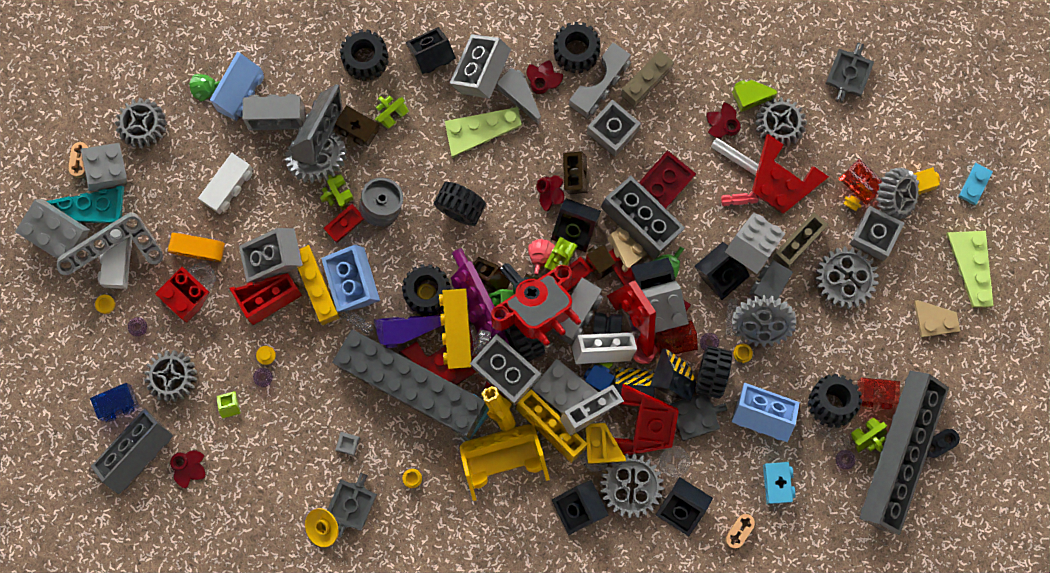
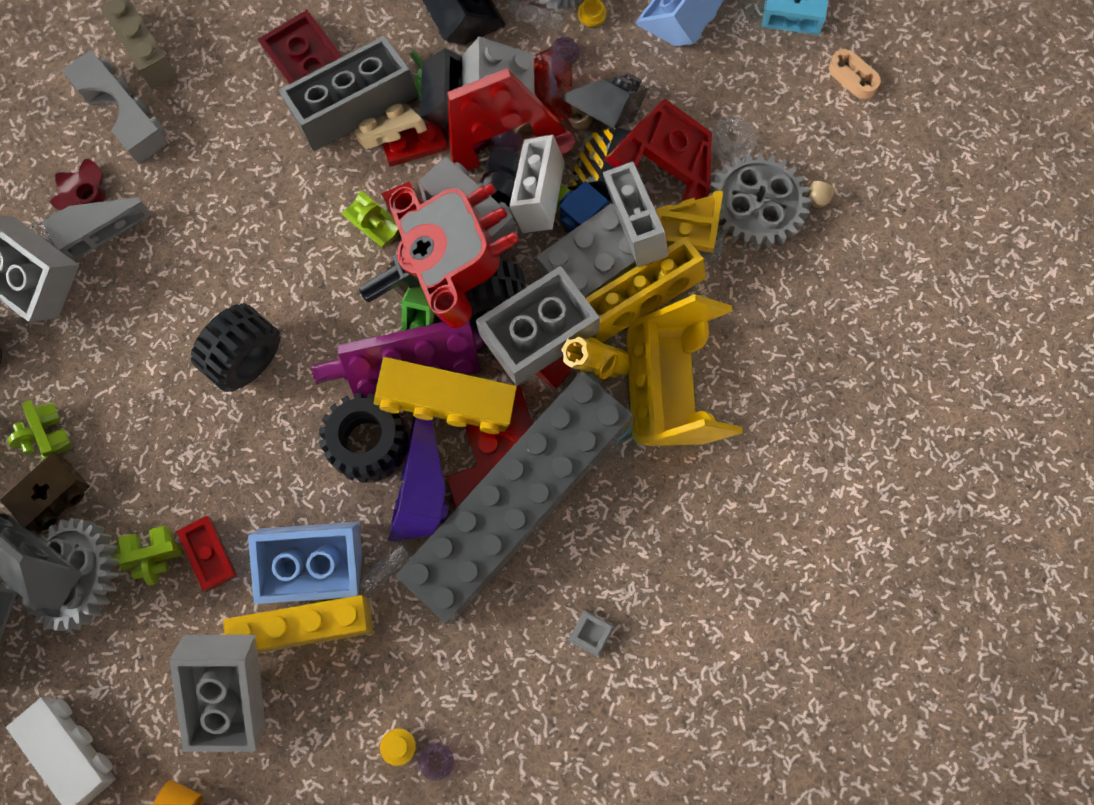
camera: 75 degrees left, 5 degrees down
(265, 297) = (292, 721): red wedge -> none
(321, 527) = (738, 718): yellow dish -> none
(351, 504) = (700, 650): dark grey plate -> none
(381, 201) = (189, 478): dark grey wheel -> none
(412, 478) = (675, 535): yellow plate -> none
(426, 291) = (366, 439): yellow plate -> none
(478, 129) = (125, 309): yellowish green wing -> none
(480, 342) = (479, 361): clear beam -> none
(491, 274) = (372, 321): dark brown slope -> none
(539, 253) = (358, 253): coral piece -> none
(550, 191) = (267, 209): dark red plate -> none
(575, 172) = (246, 168): dark brown brick -> none
(576, 223) = (327, 188): black slope -> none
(579, 33) = (35, 110): black tyre -> none
(579, 507) = (778, 282): black slope -> none
(600, 261) = (398, 159): dark brown brick -> none
(613, 128) = (196, 100): light grey brick -> none
(645, 523) = (820, 193): none -> tan hinge
(684, 506) = (805, 134): black slope -> none
(697, 416) = (674, 82): dark grey plate -> none
(714, 372) = (614, 40): black tyre -> none

